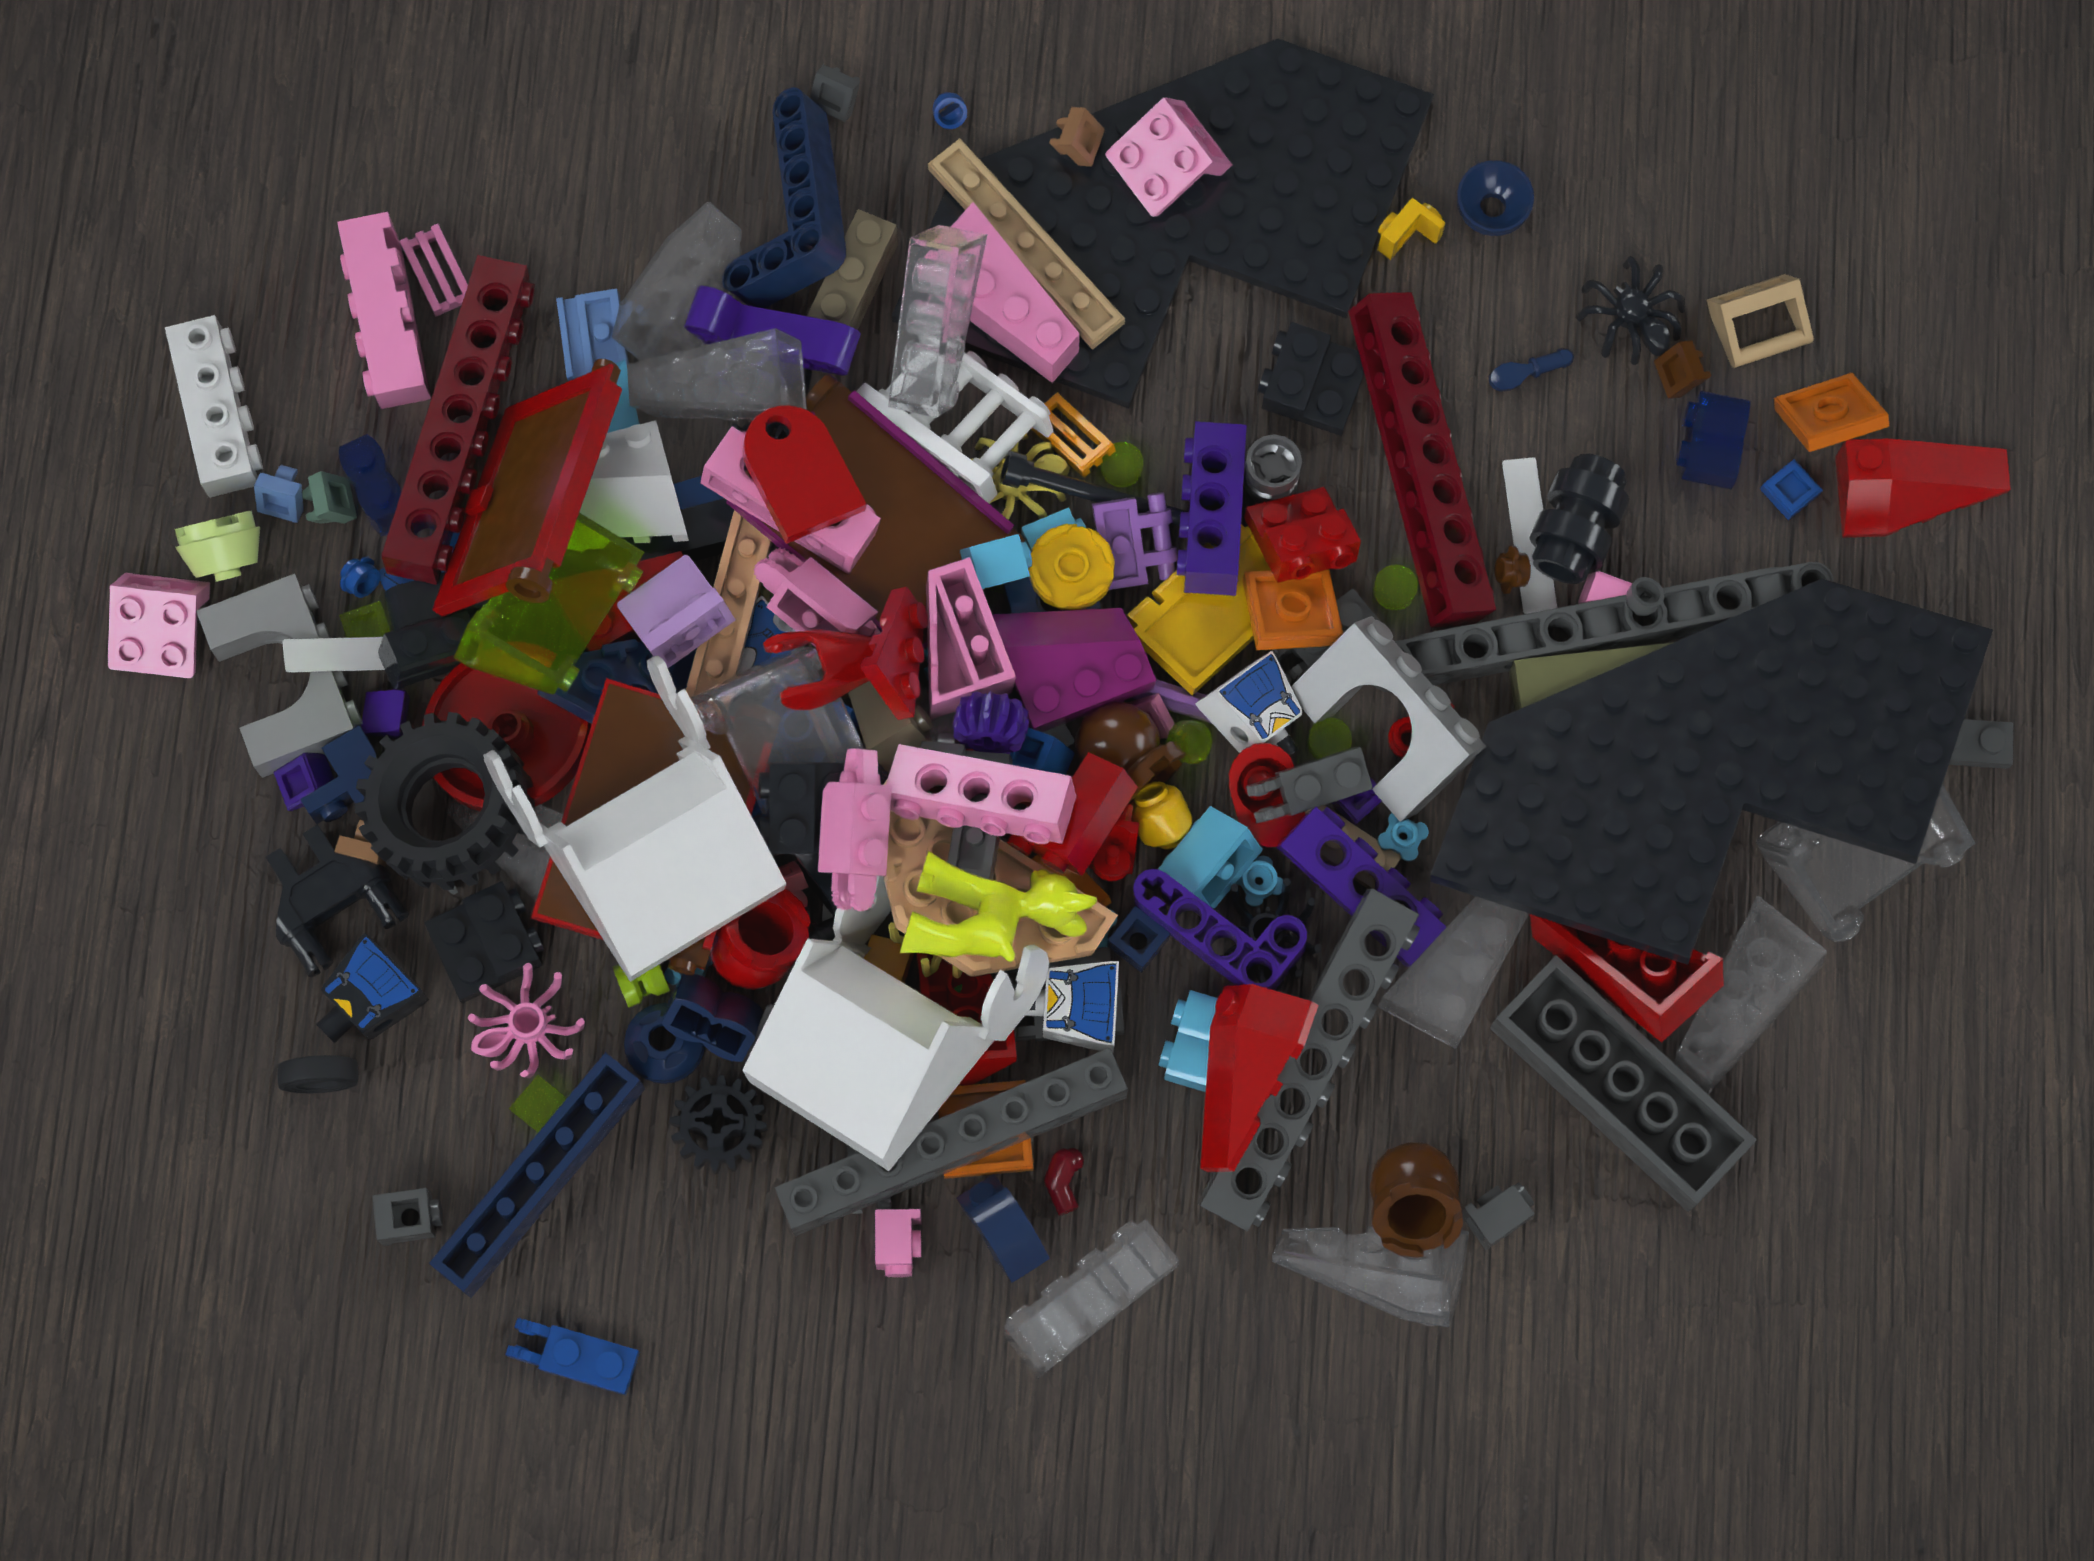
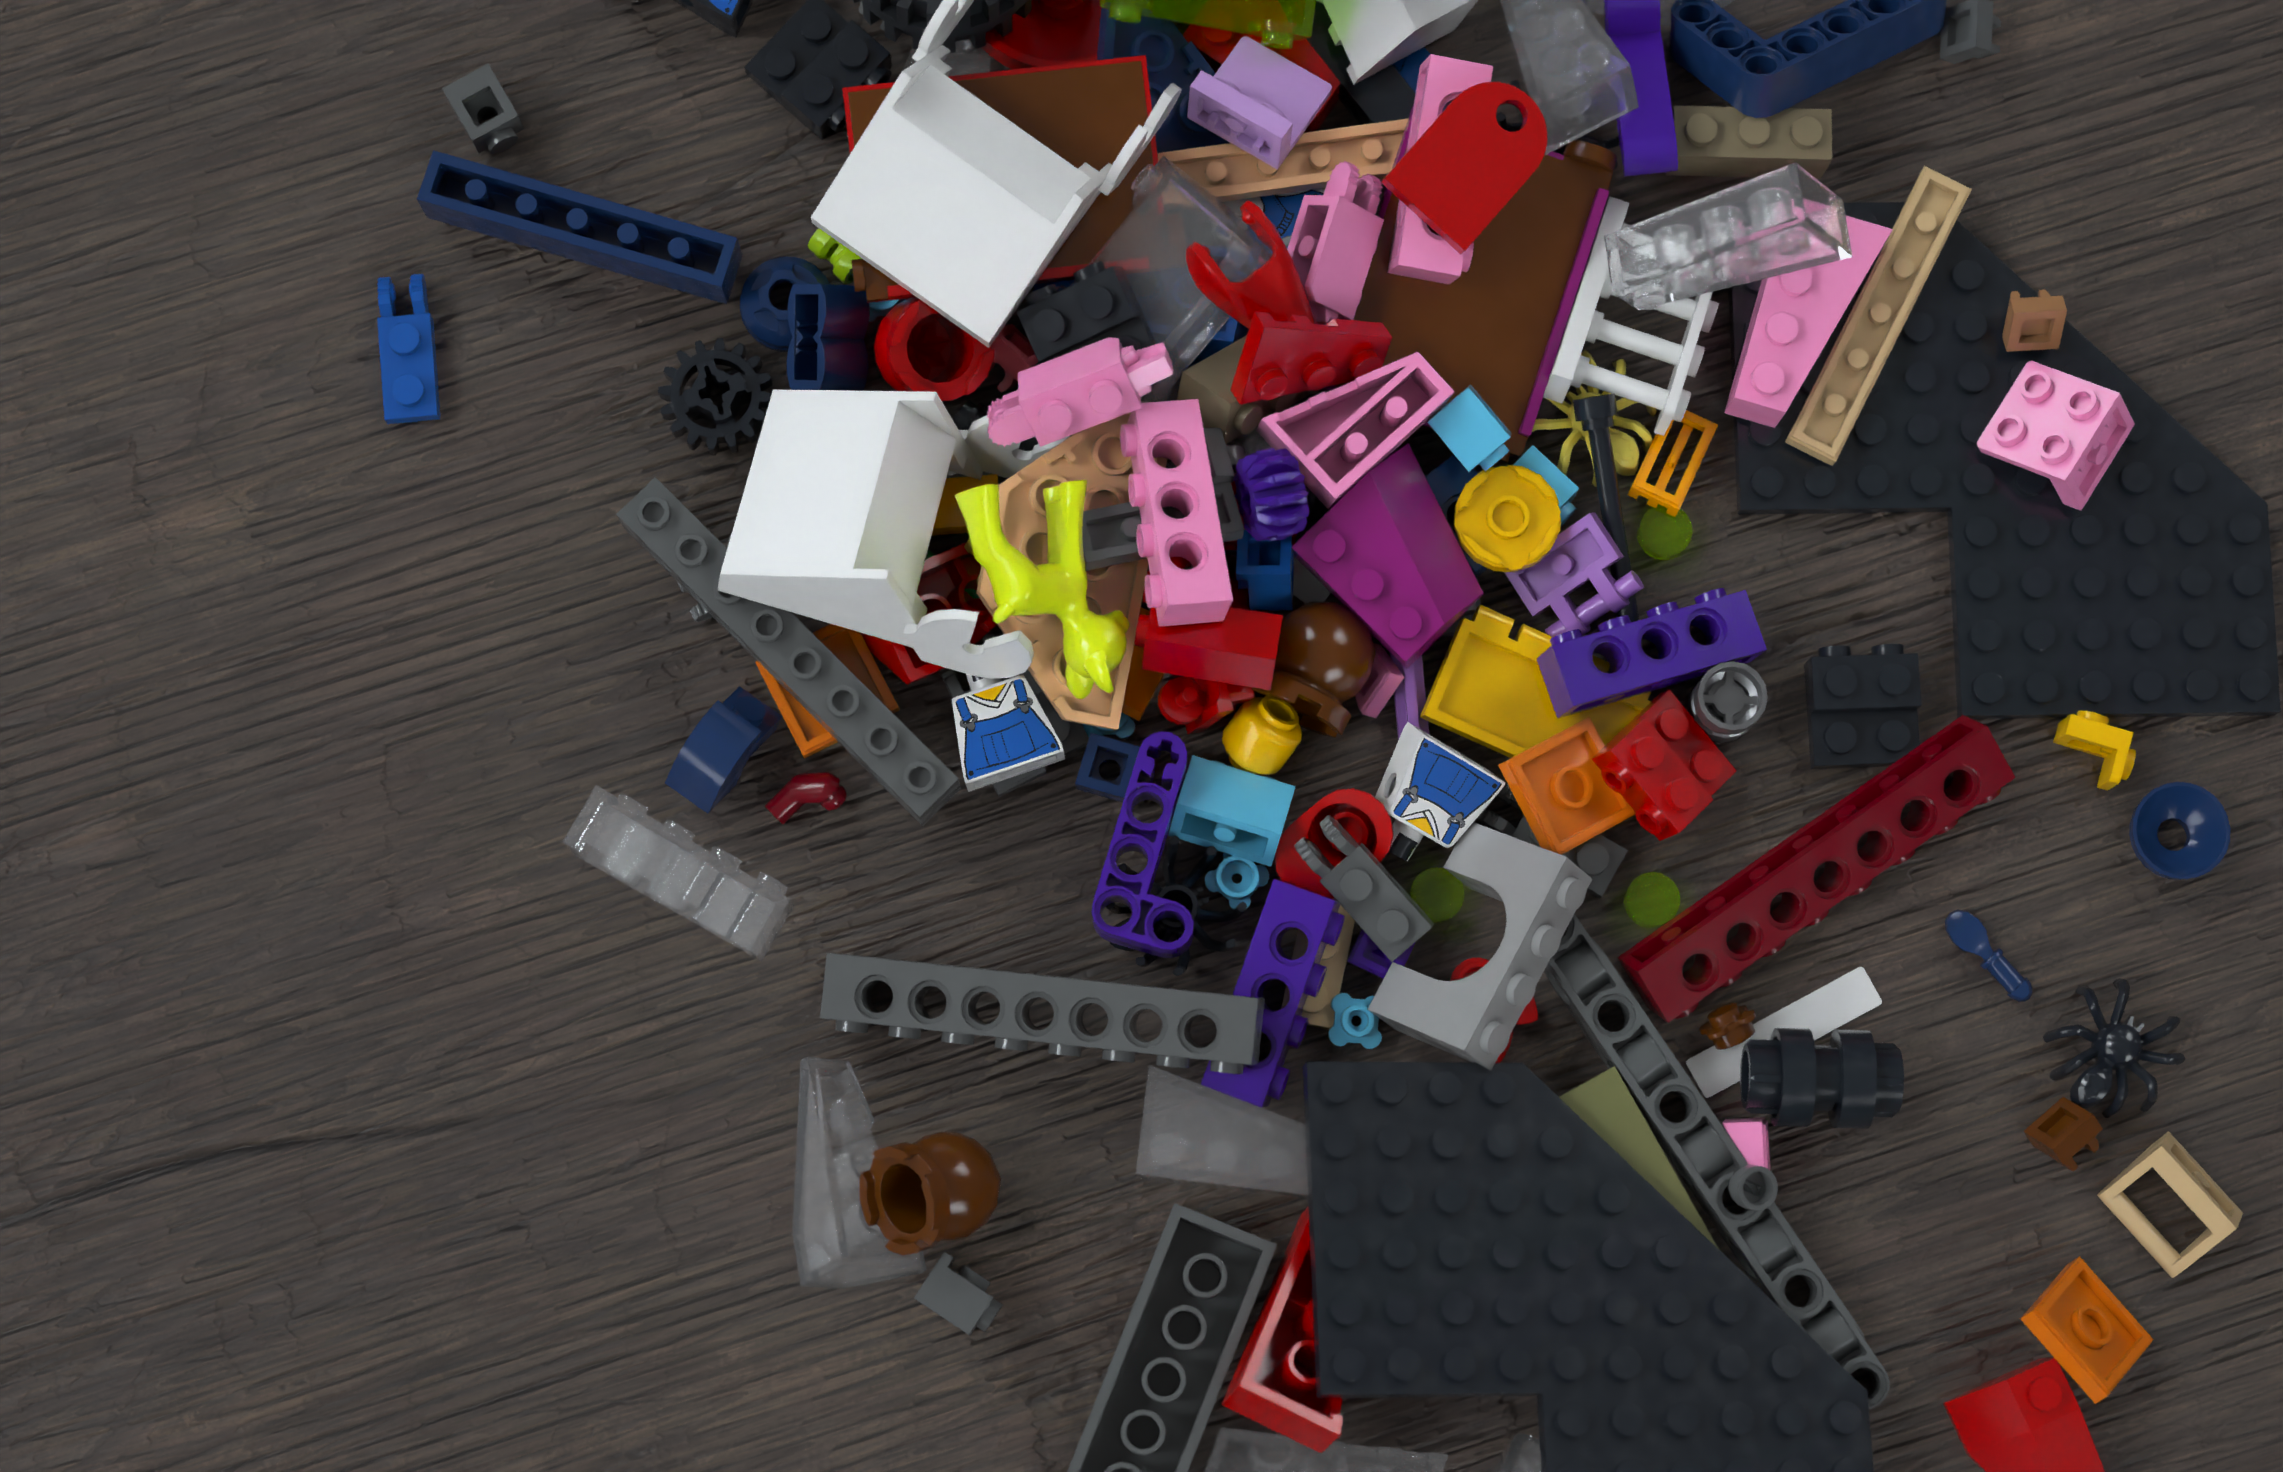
camera: 65 degrees right, 5 degrees up
(525, 1023) = (745, 144): bright pink animal -> none
(537, 1103) = (666, 196): clear neon green tile -> none
(897, 1241) = (662, 640): bright pink brick -> none
(954, 114) = (2000, 174): blue hinge -> none
(1188, 1056) = (1021, 884): medium azure brick -> none
(1193, 739) = (1366, 736): clear neon green tile -> none
(1247, 1051) = (1025, 935): red wedge -> none
(1714, 439) = (1993, 1203): clear blue brick -> none
(1791, 489) = (1974, 1319): blue tile -> none

